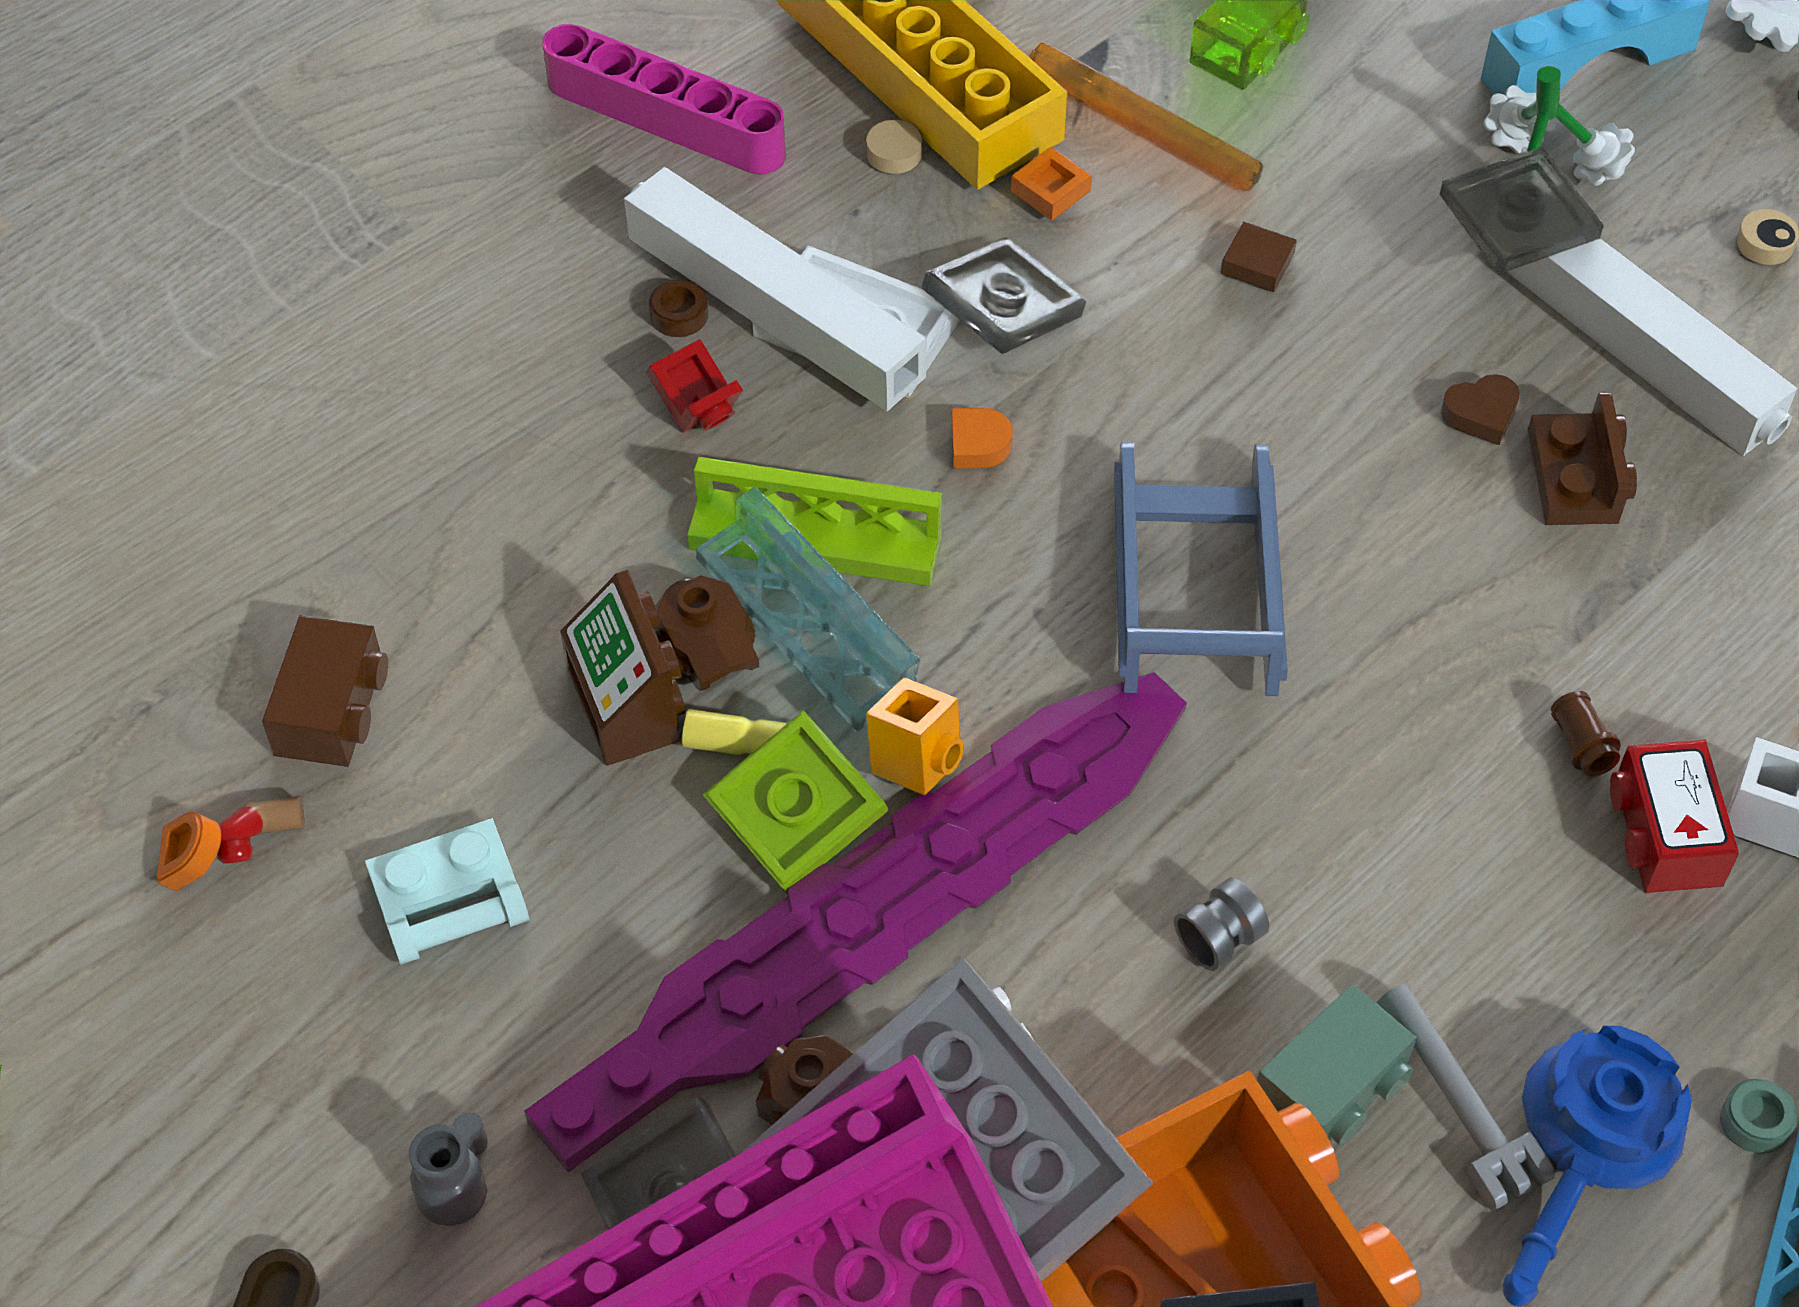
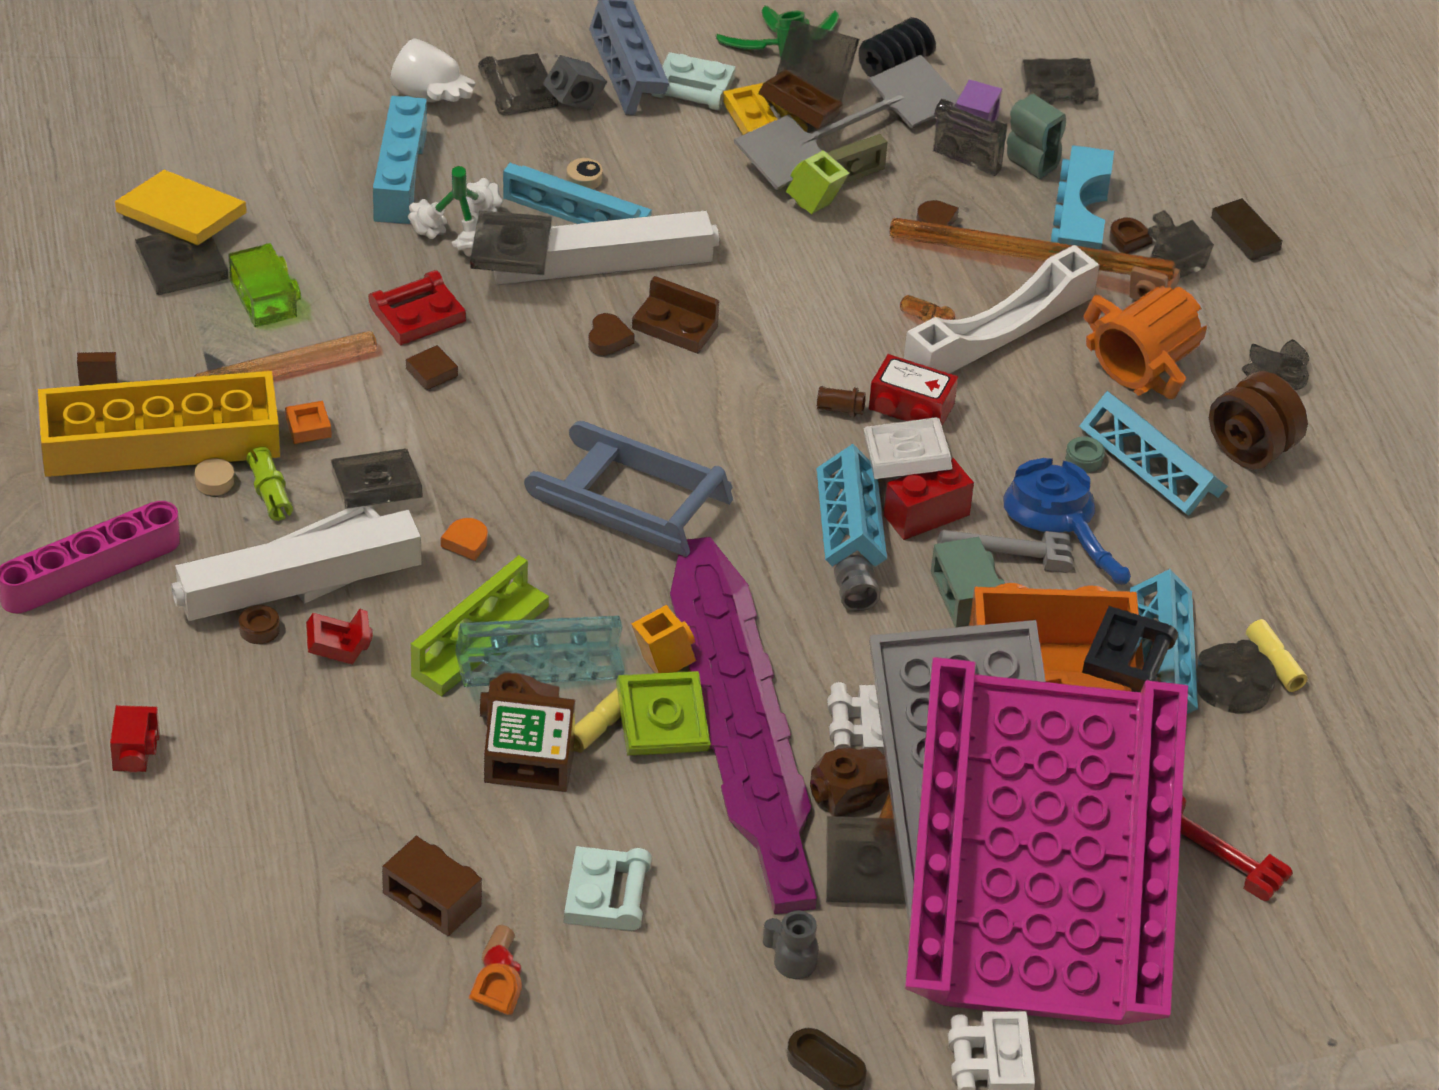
camera: 65 degrees left, 10 degrees down
(392, 279) = (134, 737): none -> red brick
(915, 199) = (269, 483): none -> lime pin
(1349, 204) = (420, 316): none -> red plate
(1359, 847) = (859, 501): none -> medium azure fence
(1463, 936) = (928, 500): none -> red brick
(1529, 857) = (907, 448): none -> white tile
(1689, 247) = (564, 197): none -> medium azure fence

